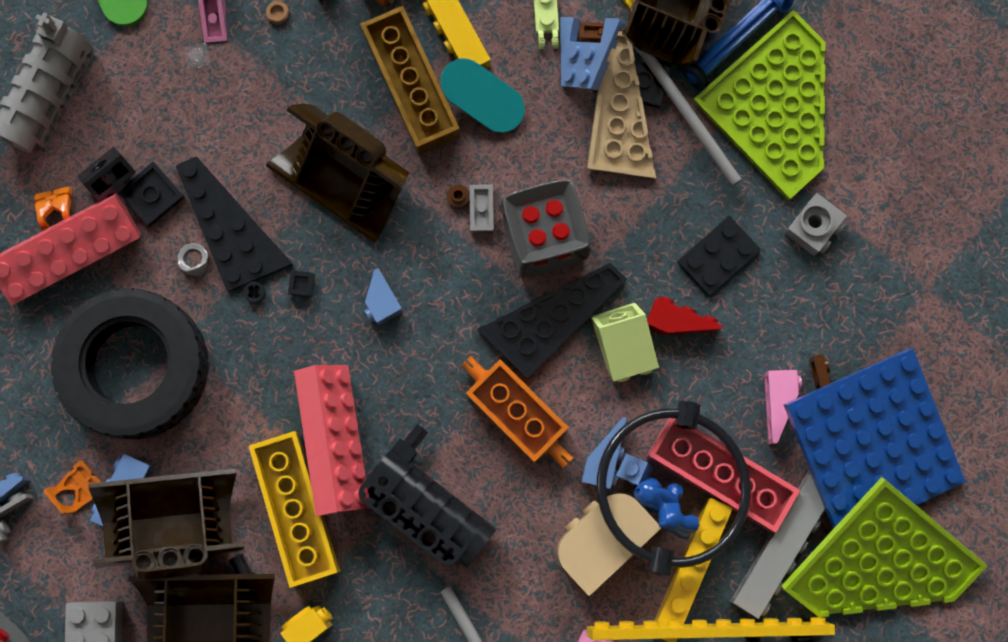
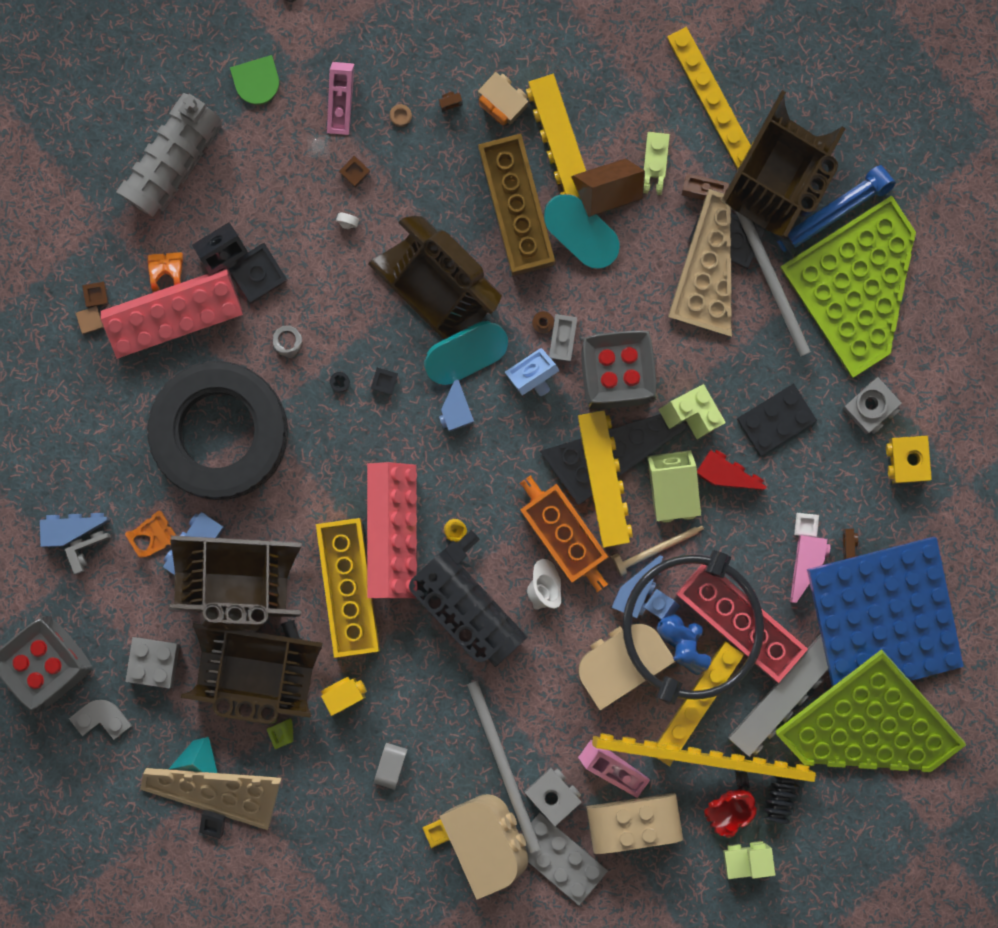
camera: 15 degrees right, 5 degrees up
(235, 240) = (328, 328): black wing -> none
(237, 125) = (347, 221): none -> white tile
(238, 75) = (354, 171): none -> reddish brown plate
(382, 239) = (466, 352): none -> teal tile
(400, 427) = (455, 530): none -> yellow tile
(455, 249) = (532, 373): none -> light blue tile
(504, 46) = (610, 186): none -> reddish brown slope
(506, 471) = (545, 586): none -> white piece
(549, 346) = (603, 479): none -> yellow brick
(584, 436) = (622, 565): none -> tan piece
(586, 62) = (681, 216): medium blue wing -> none
(634, 258) = (695, 408): none -> yellowish green brick
(770, 359) = (806, 525): none -> white tile
(857, 284) = (900, 469): none -> yellow brick

